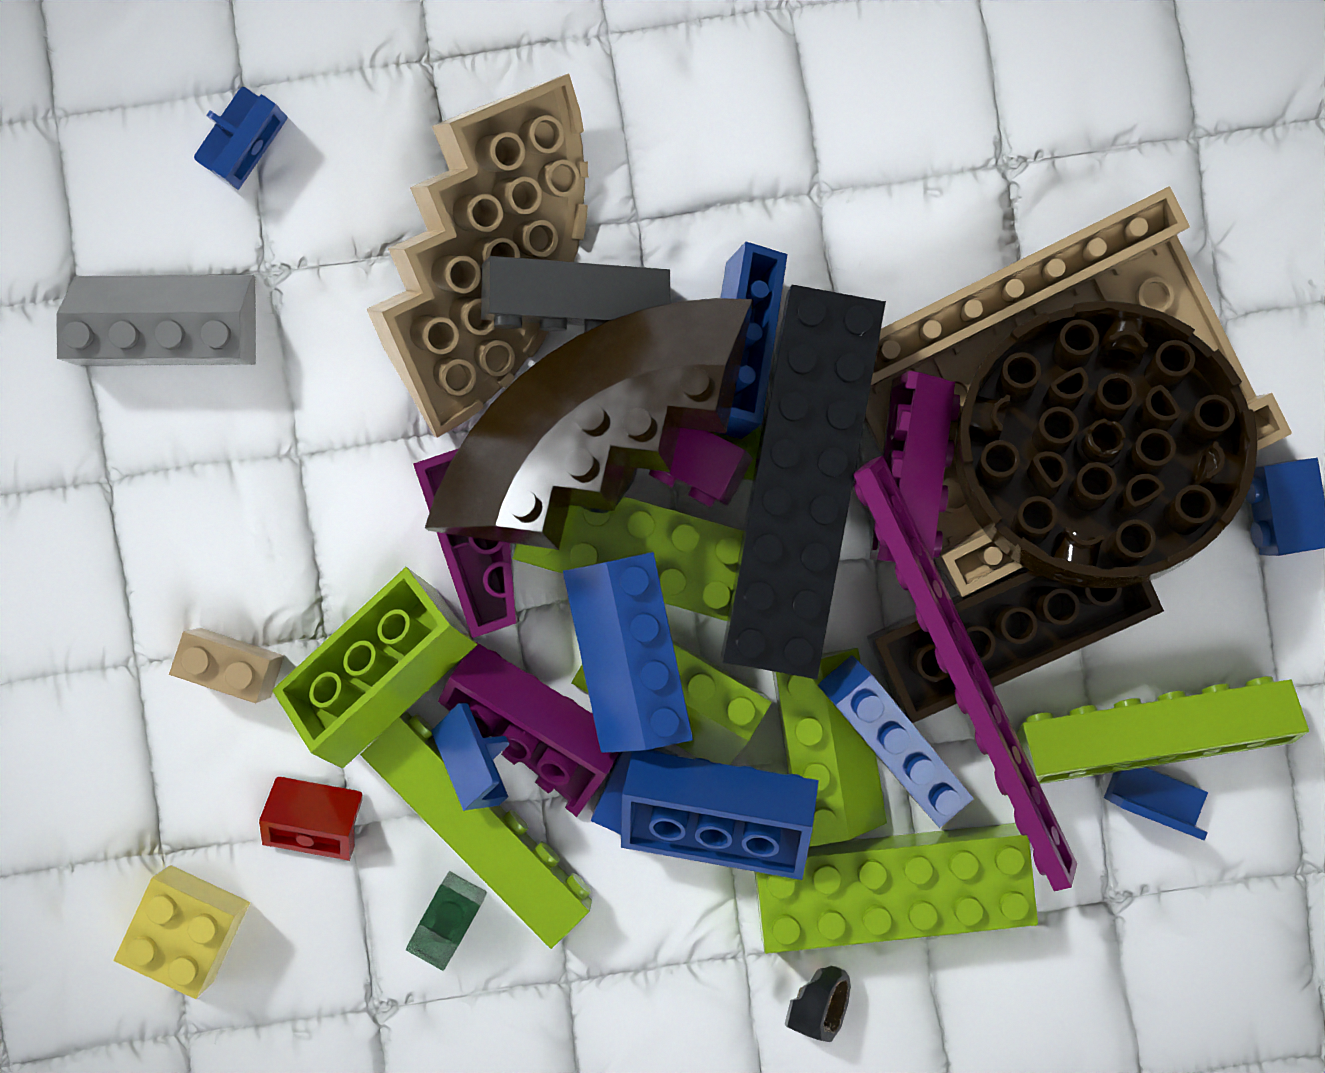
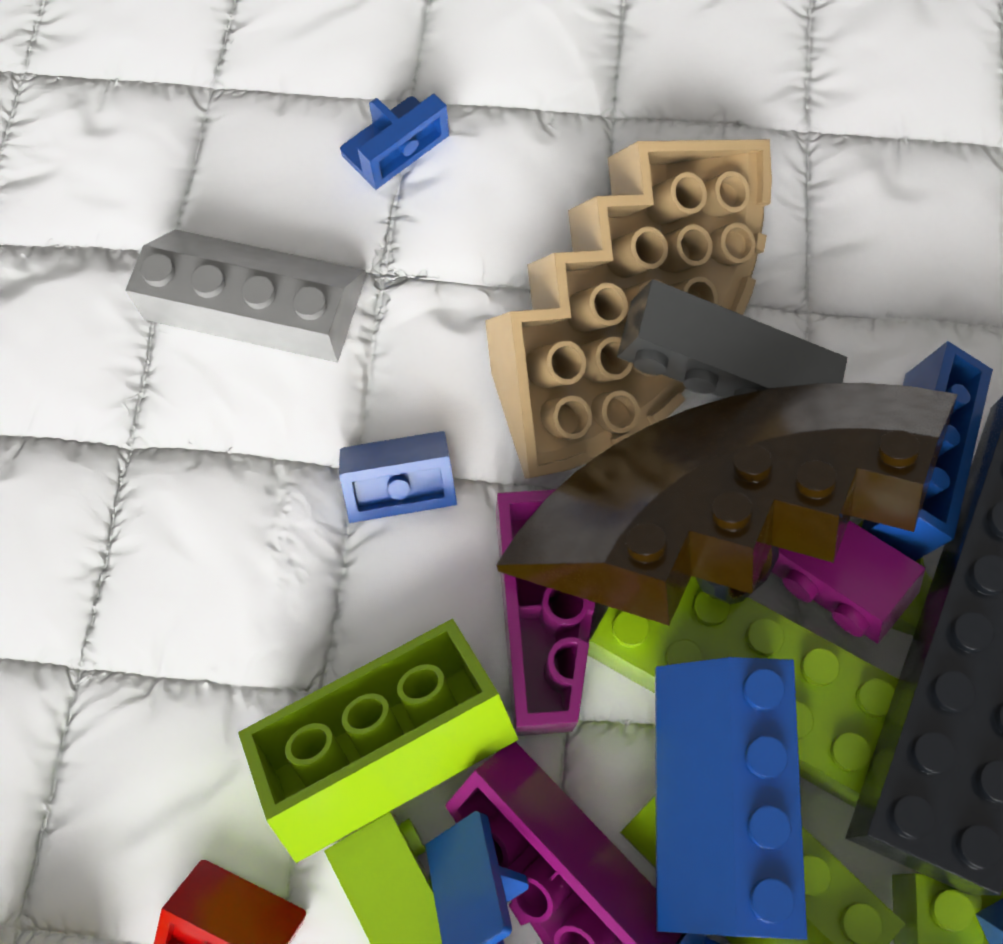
camera: 20 degrees right, 20 degrees down
(226, 665) = (190, 690): tan brick -> none
(332, 455) = (396, 476): none -> blue panel

